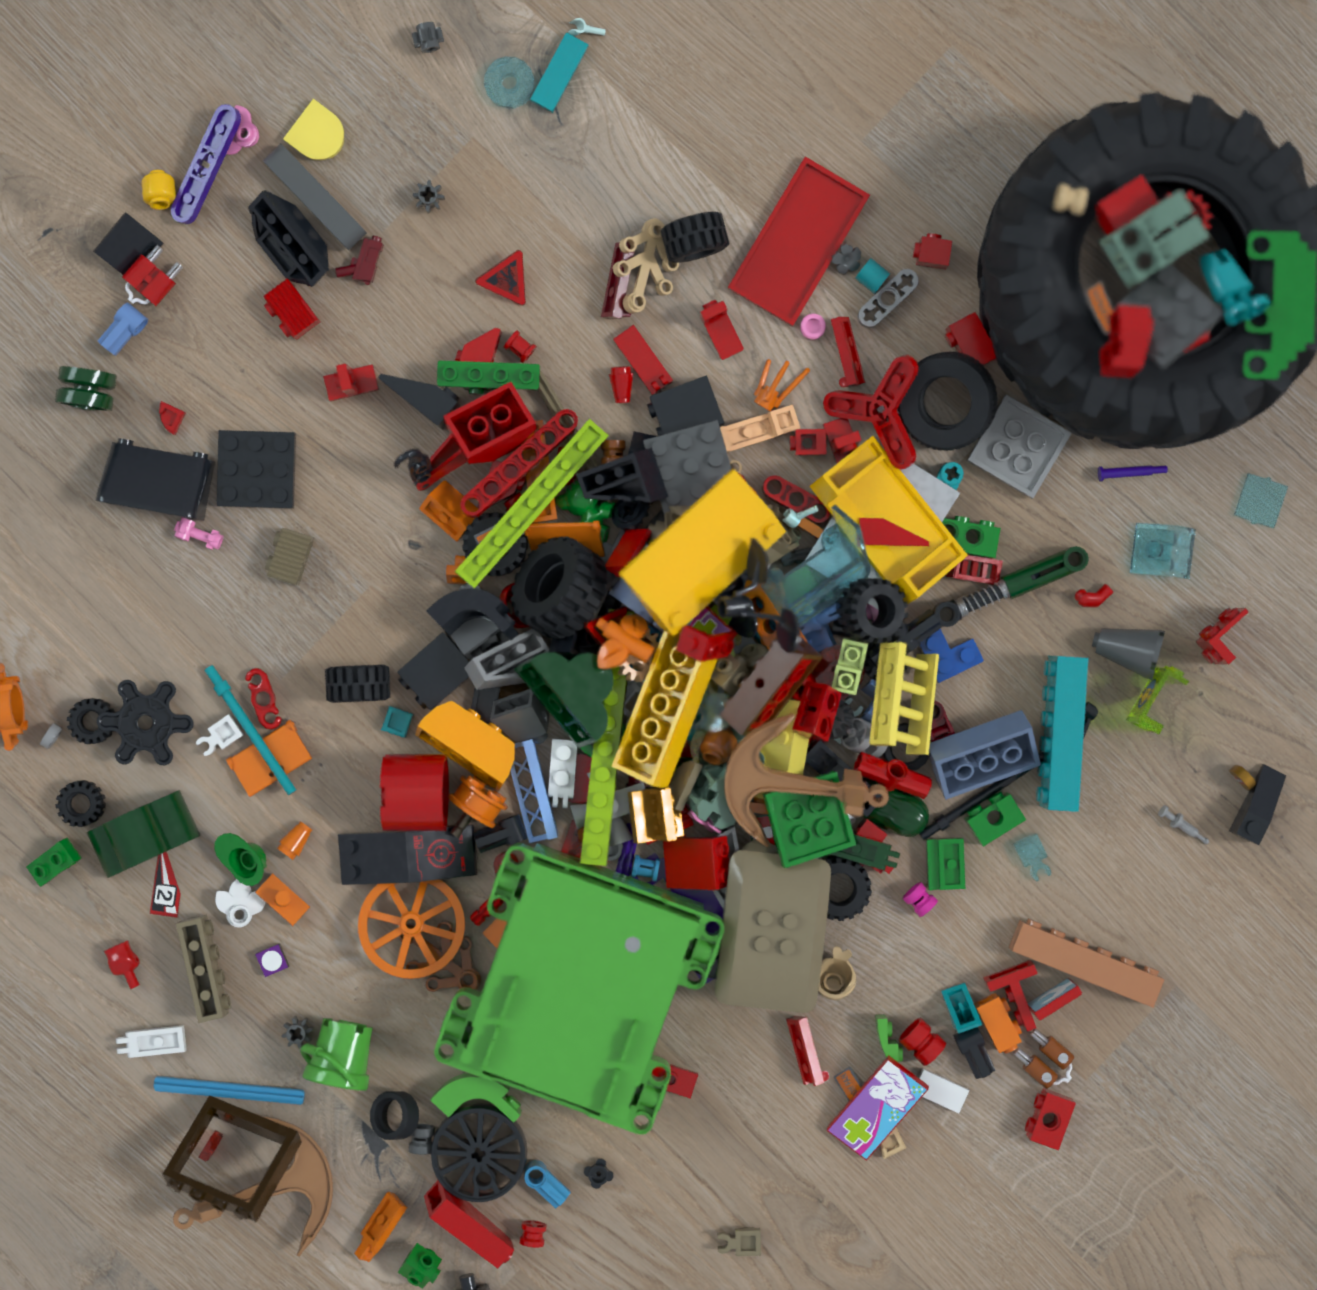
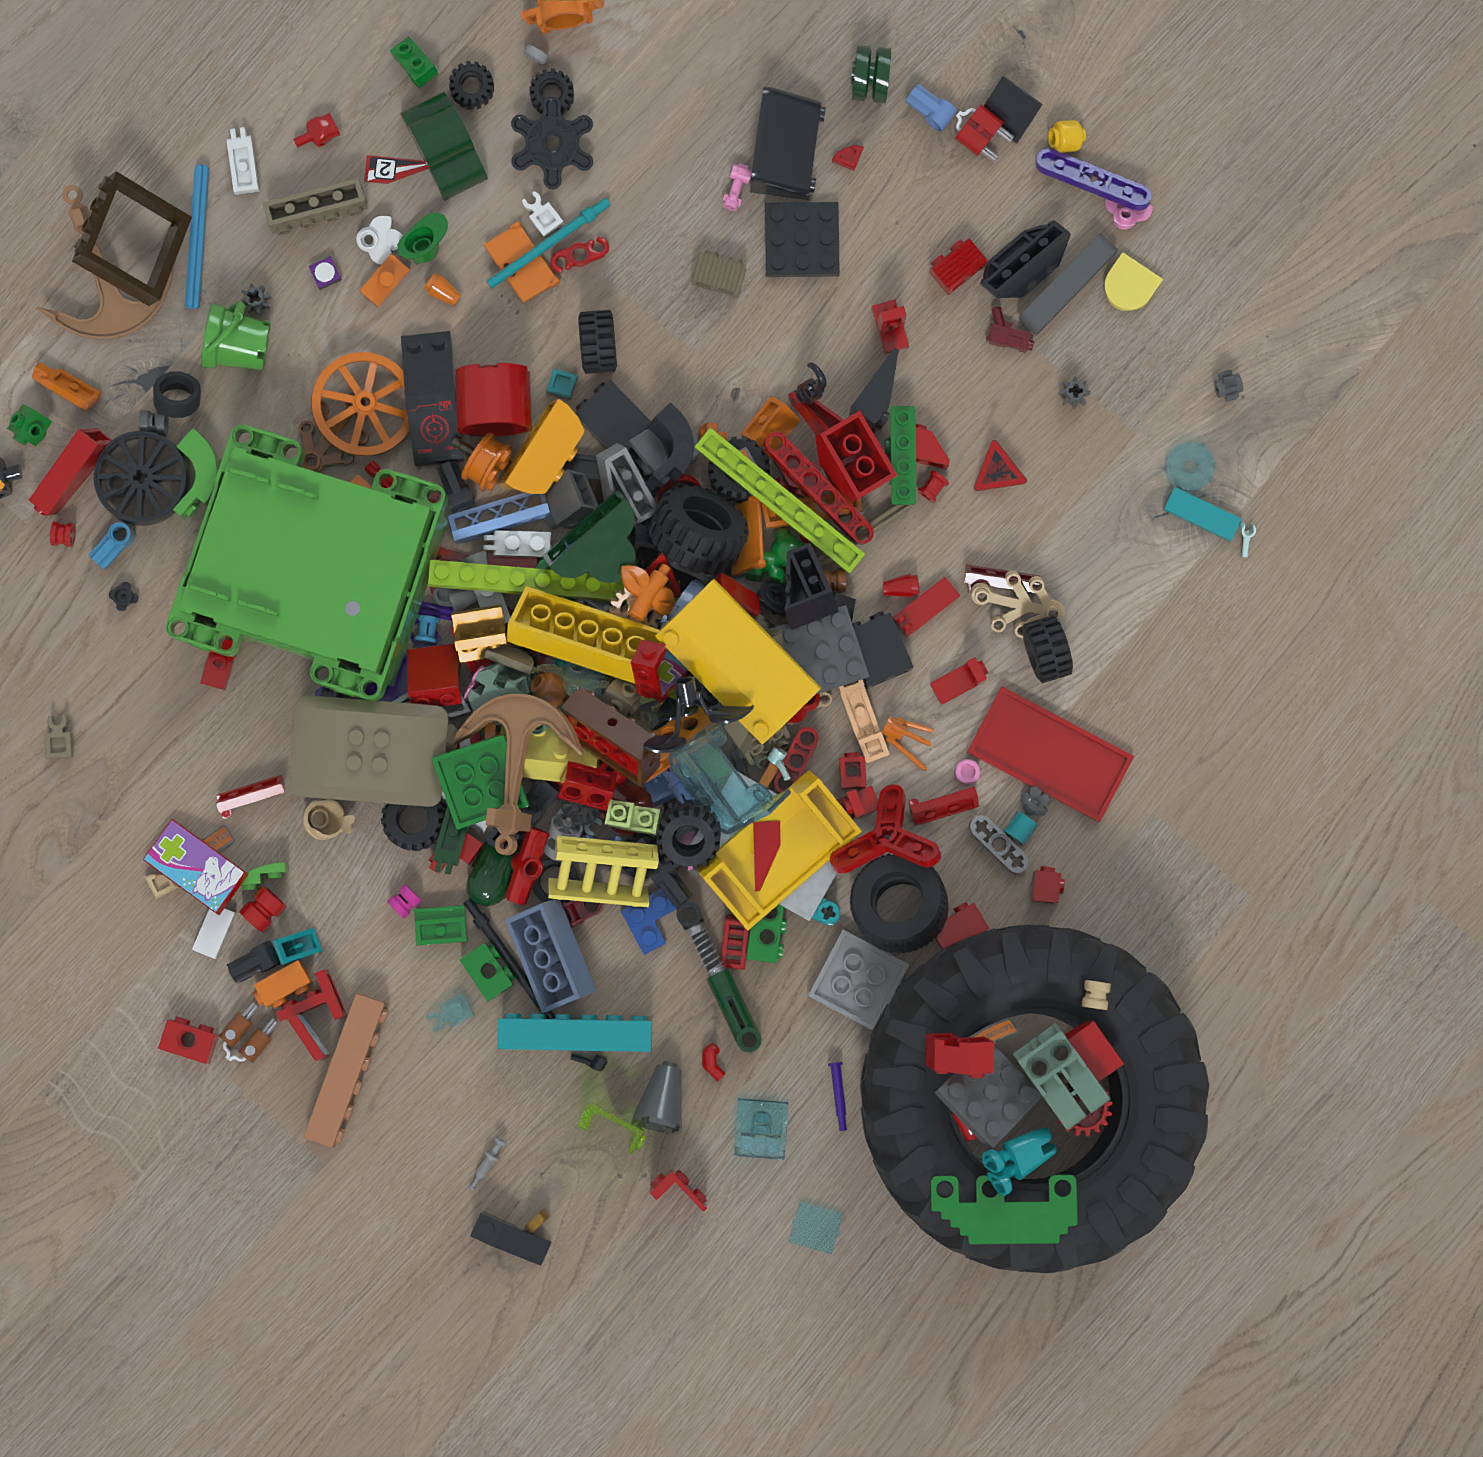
camera: 80 degrees right, 5 degrees down
(211, 1146) = (142, 221): clear red tile -> none

